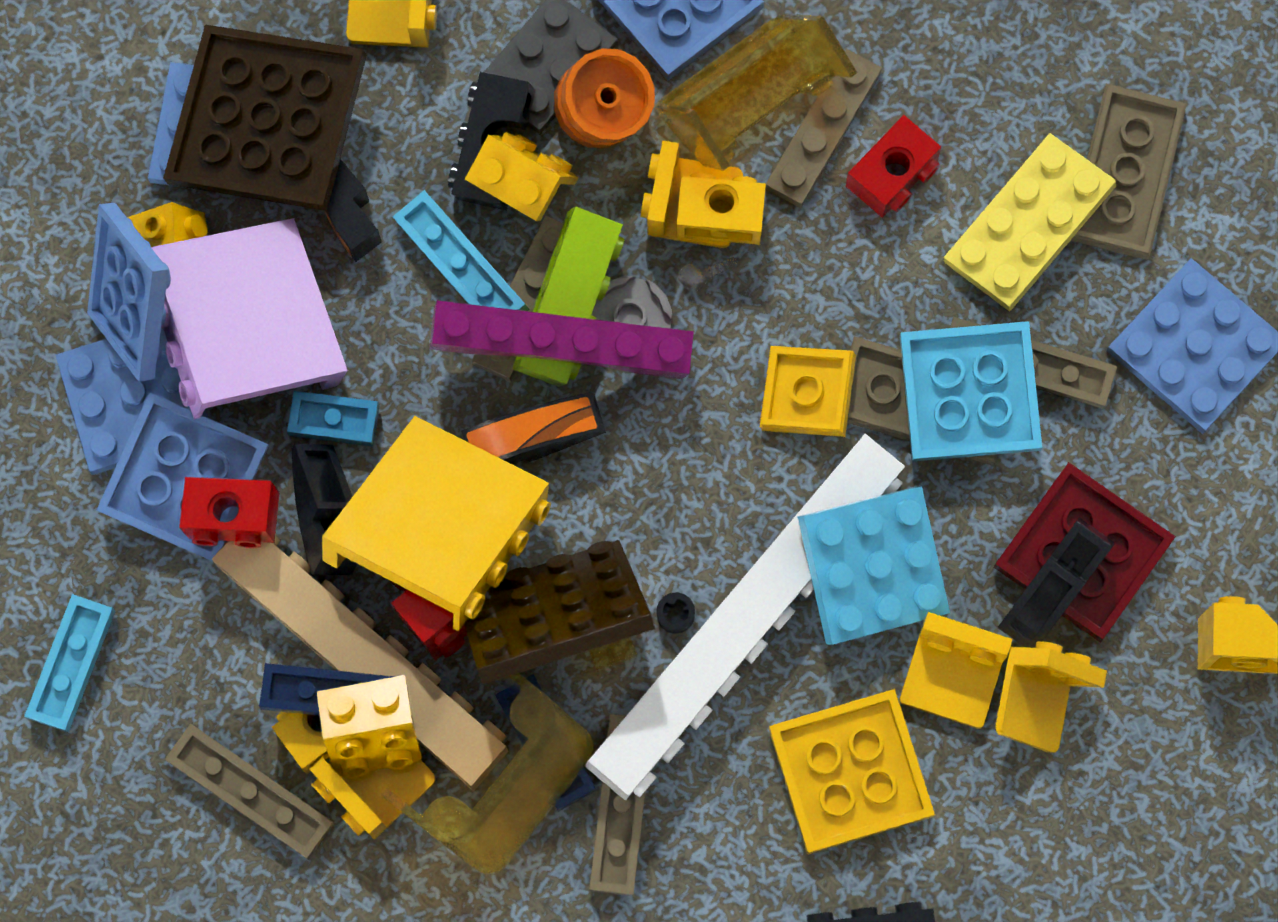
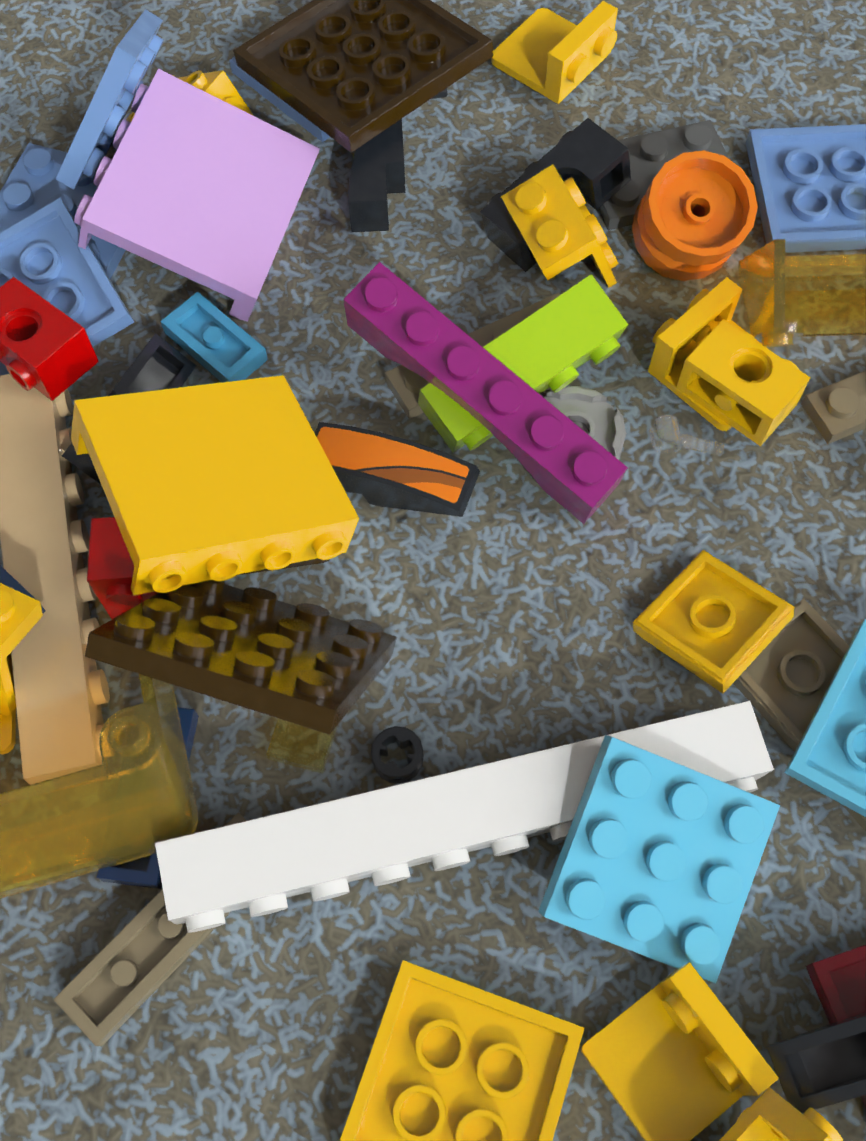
camera: 35 degrees right, 10 degrees down
(455, 255) = (442, 261): medium azure plate -> none

